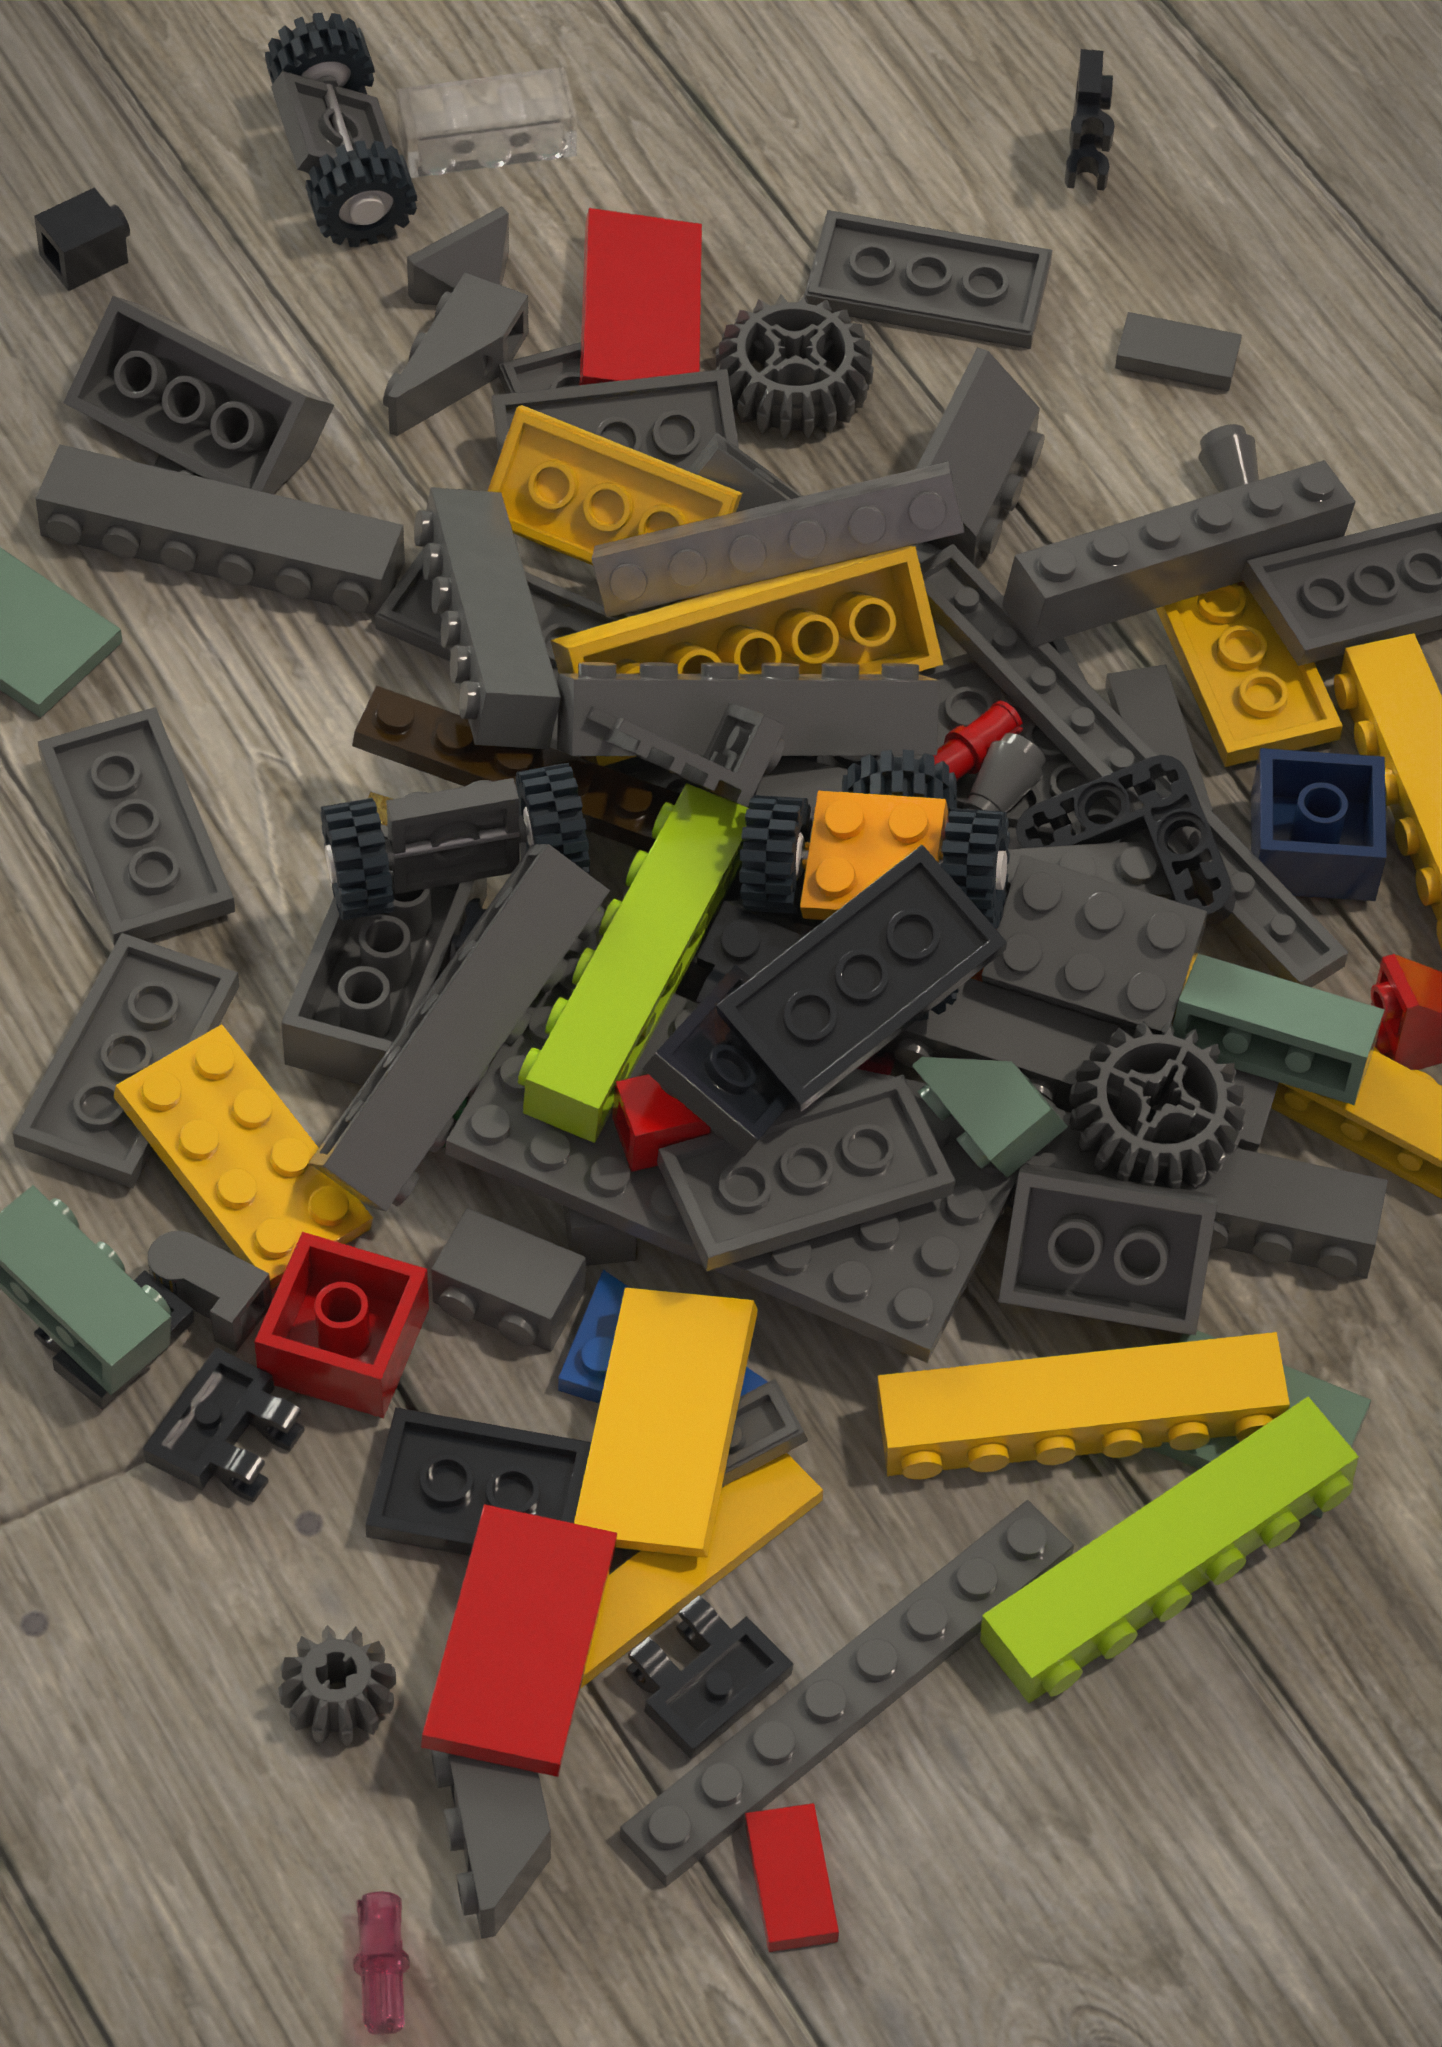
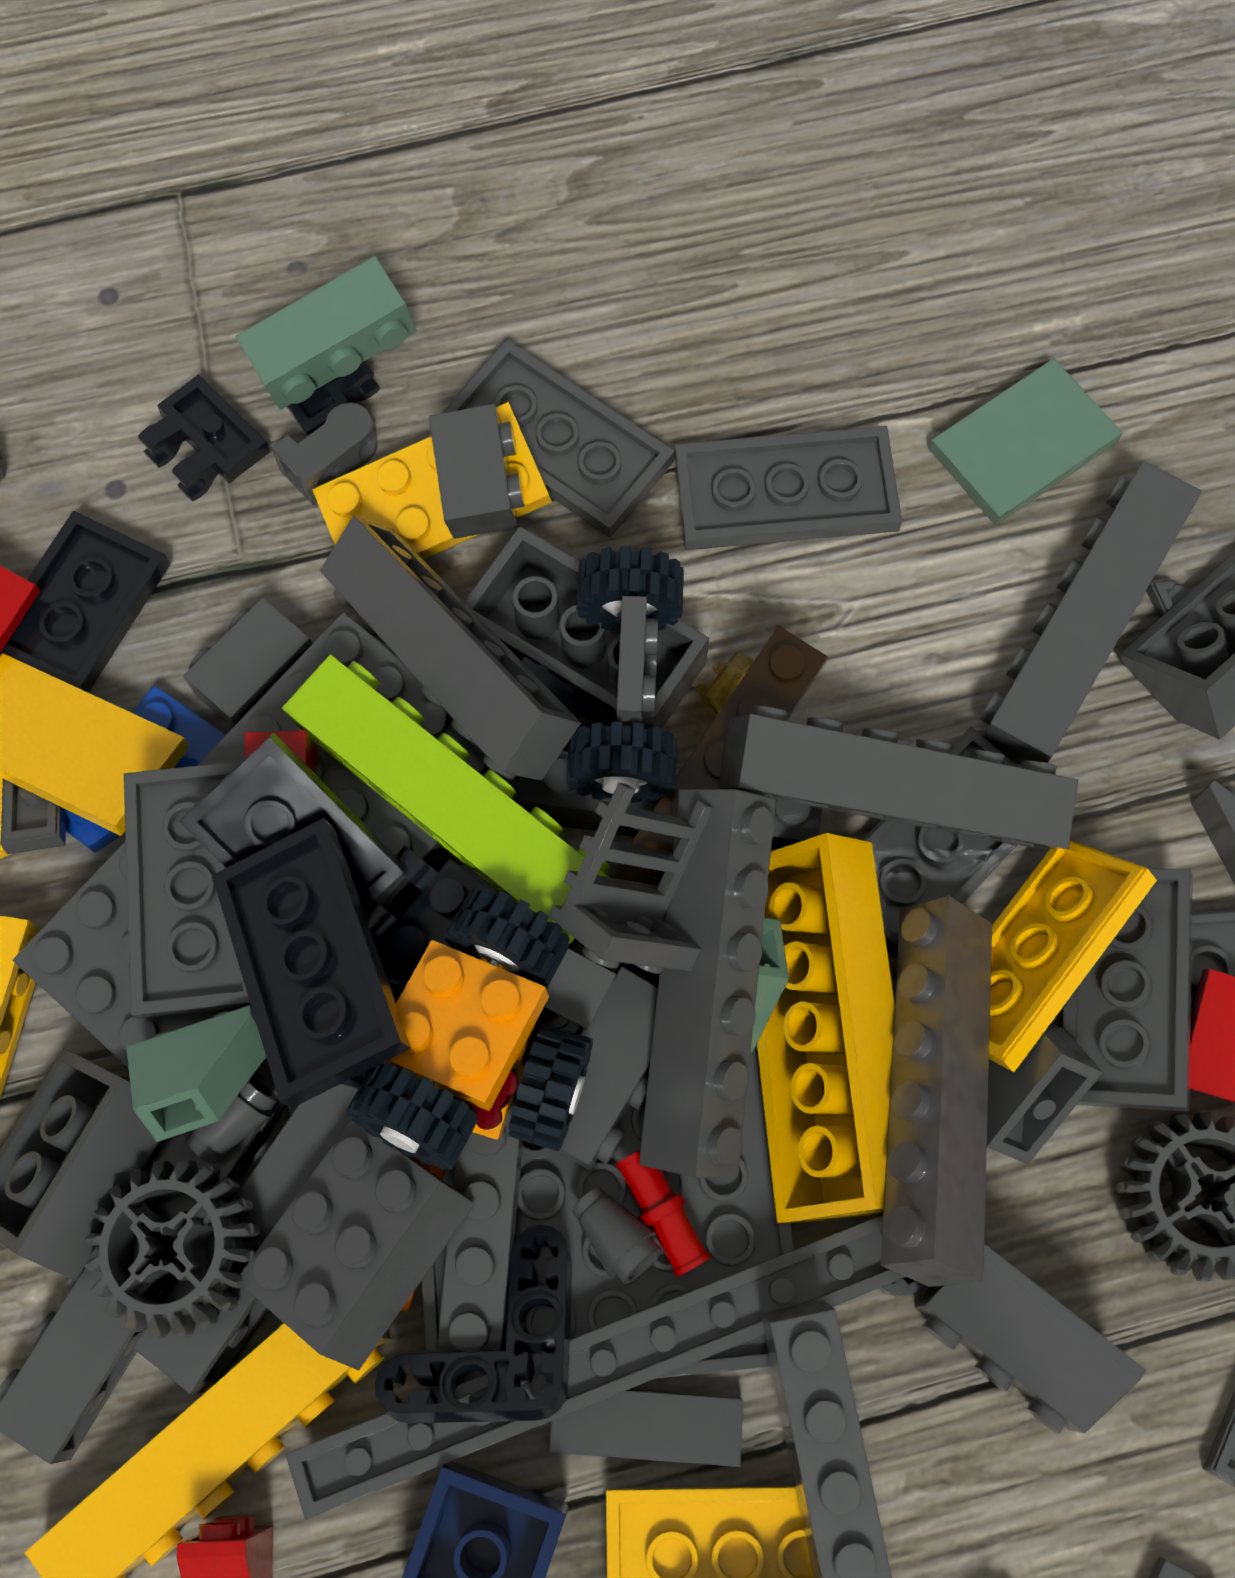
camera: 110 degrees right, 15 degrees up
(227, 1077) = (474, 471): none -> dark grey brick
(343, 1324) = (243, 526): red brick -> none
(1279, 1028) = (217, 1407): sand green brick -> none

